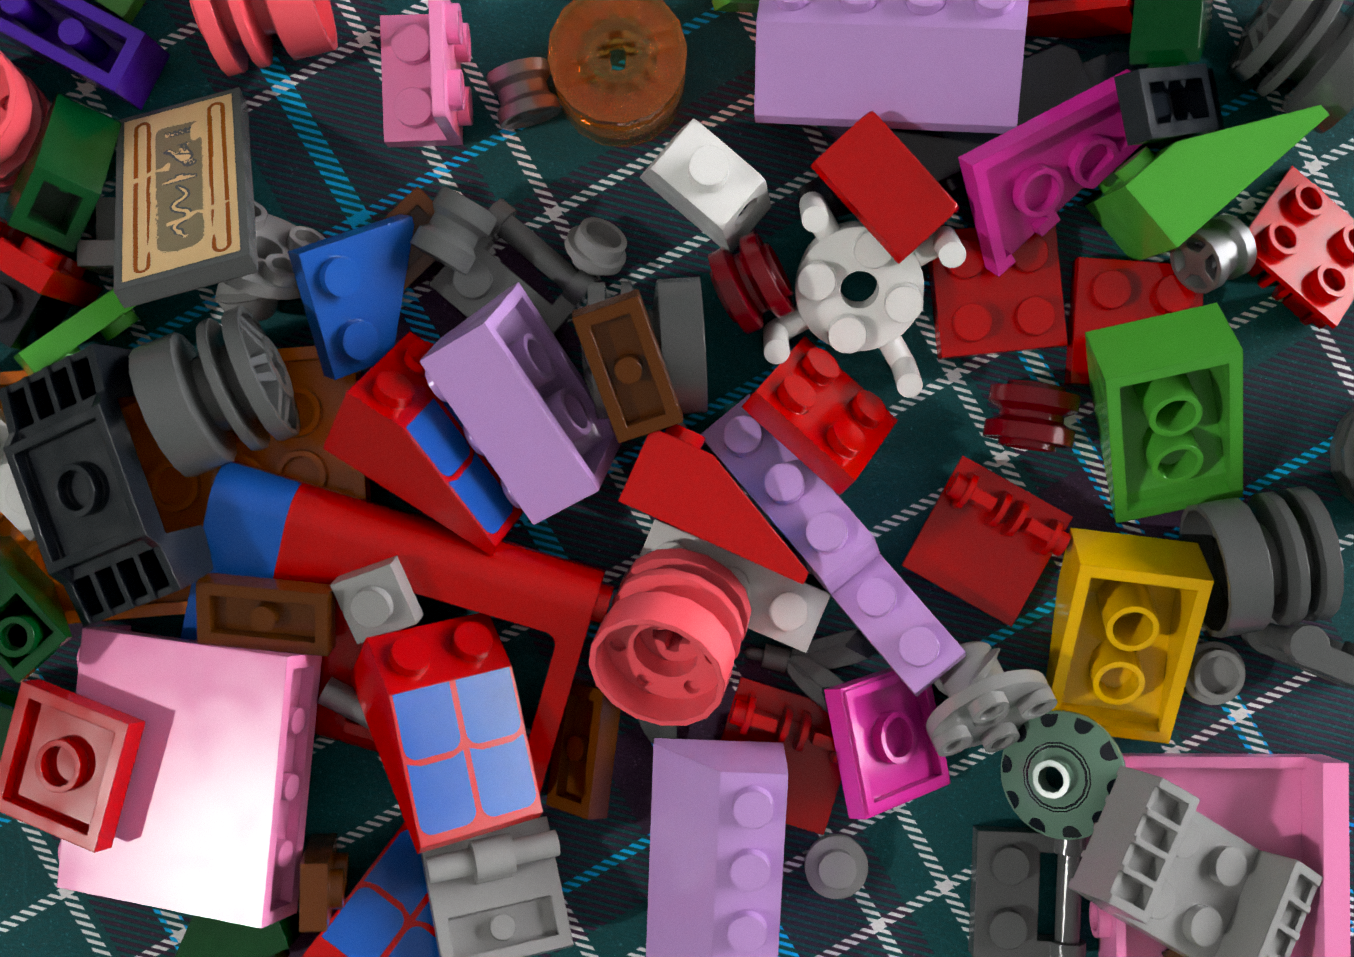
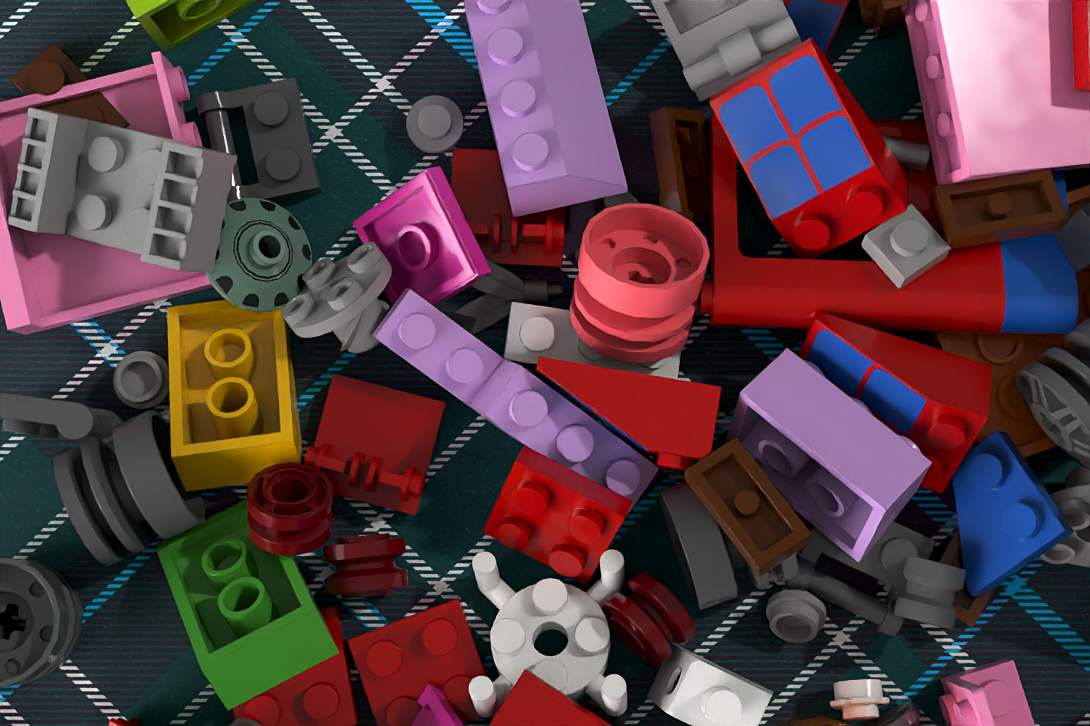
camera: 160 degrees right, 5 degrees down
(555, 144) = (859, 699): none -> white plate
(1099, 494) = (290, 509): none -> dark red wheel

